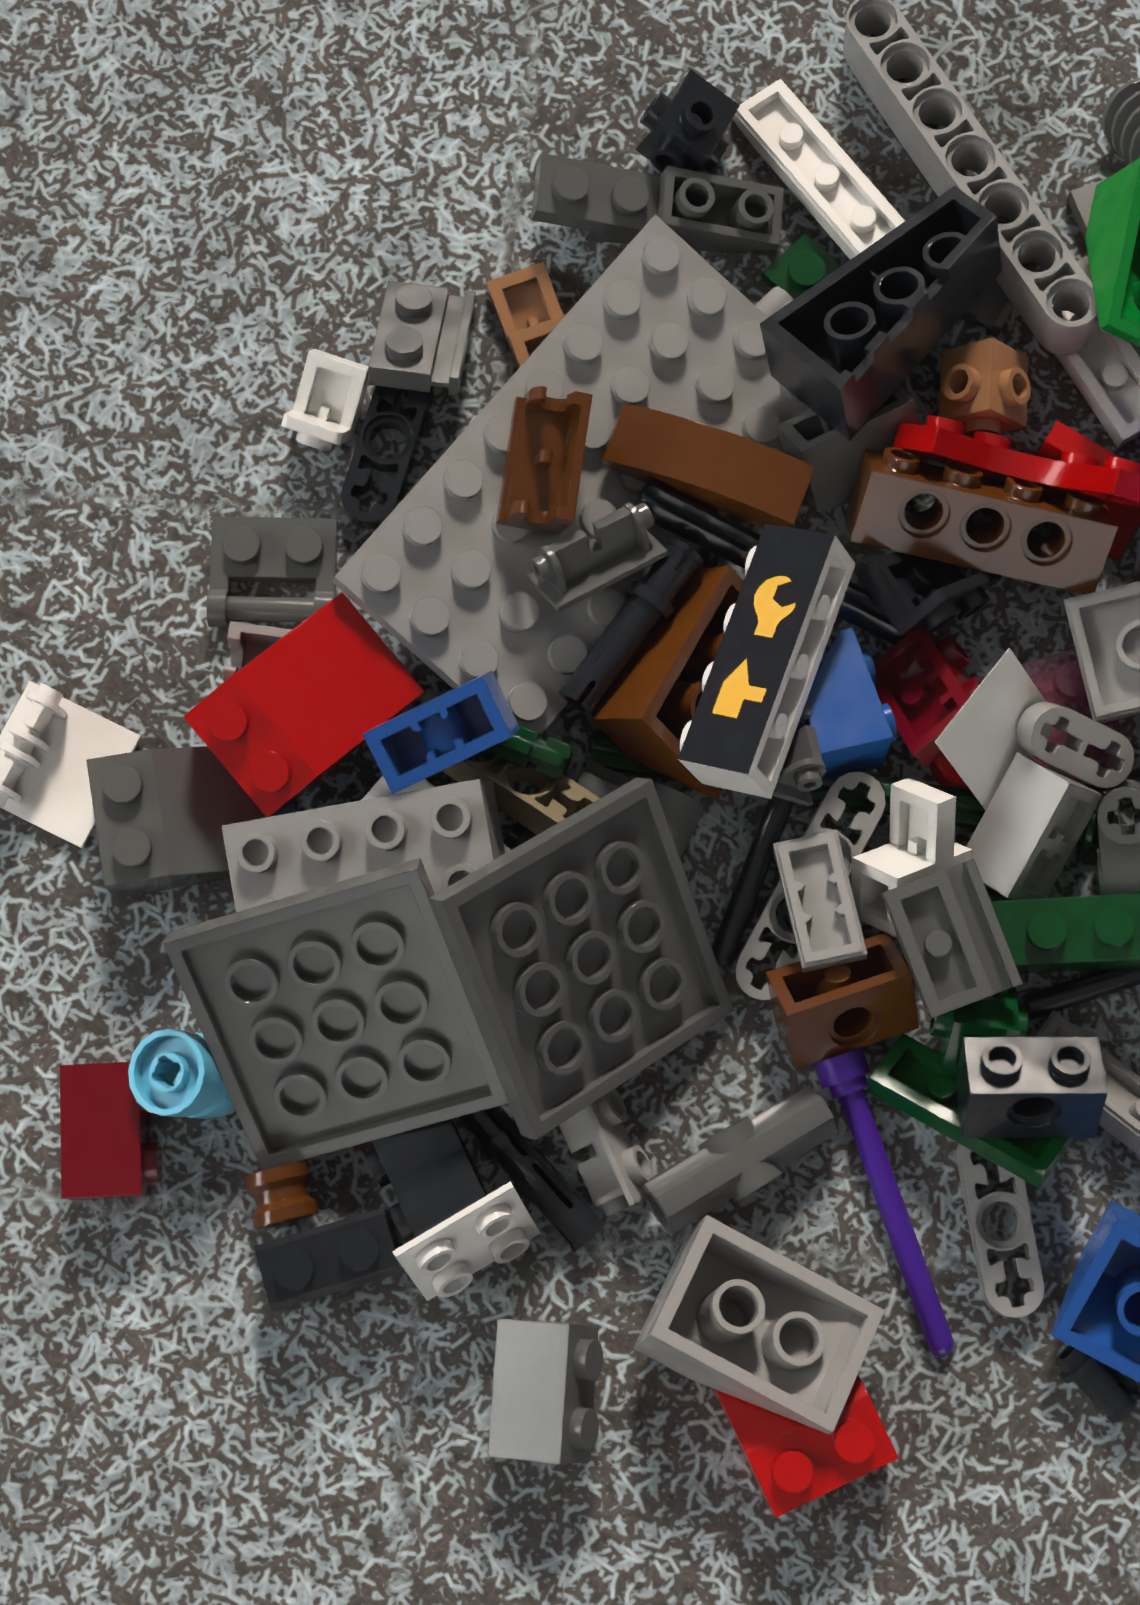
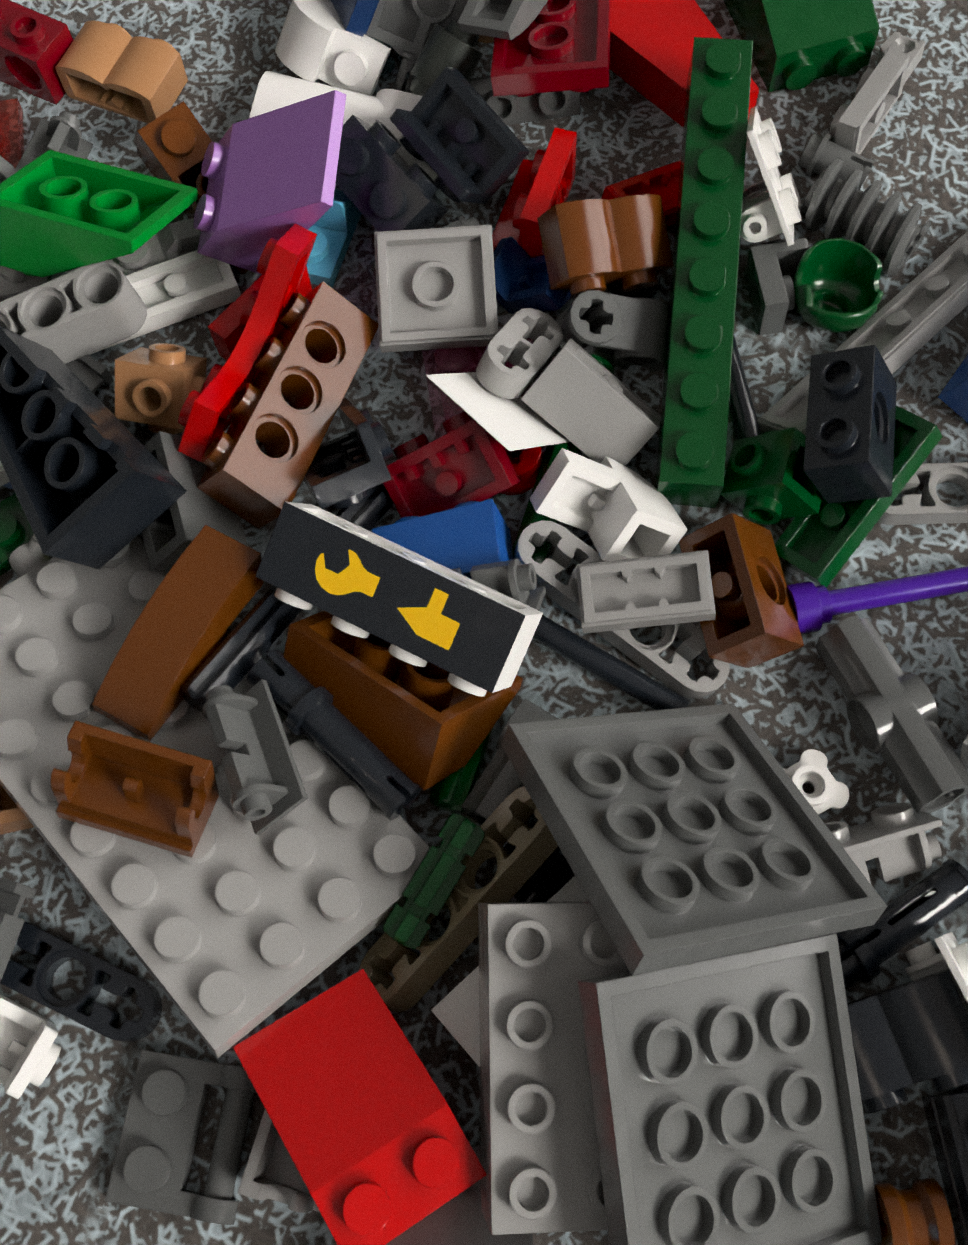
camera: 75 degrees left, 10 degrees down
(441, 732) = (423, 946): blue brick -> none
(656, 1105) = (827, 791): none -> white plate
(951, 938) = (702, 470): dark grey plate -> none

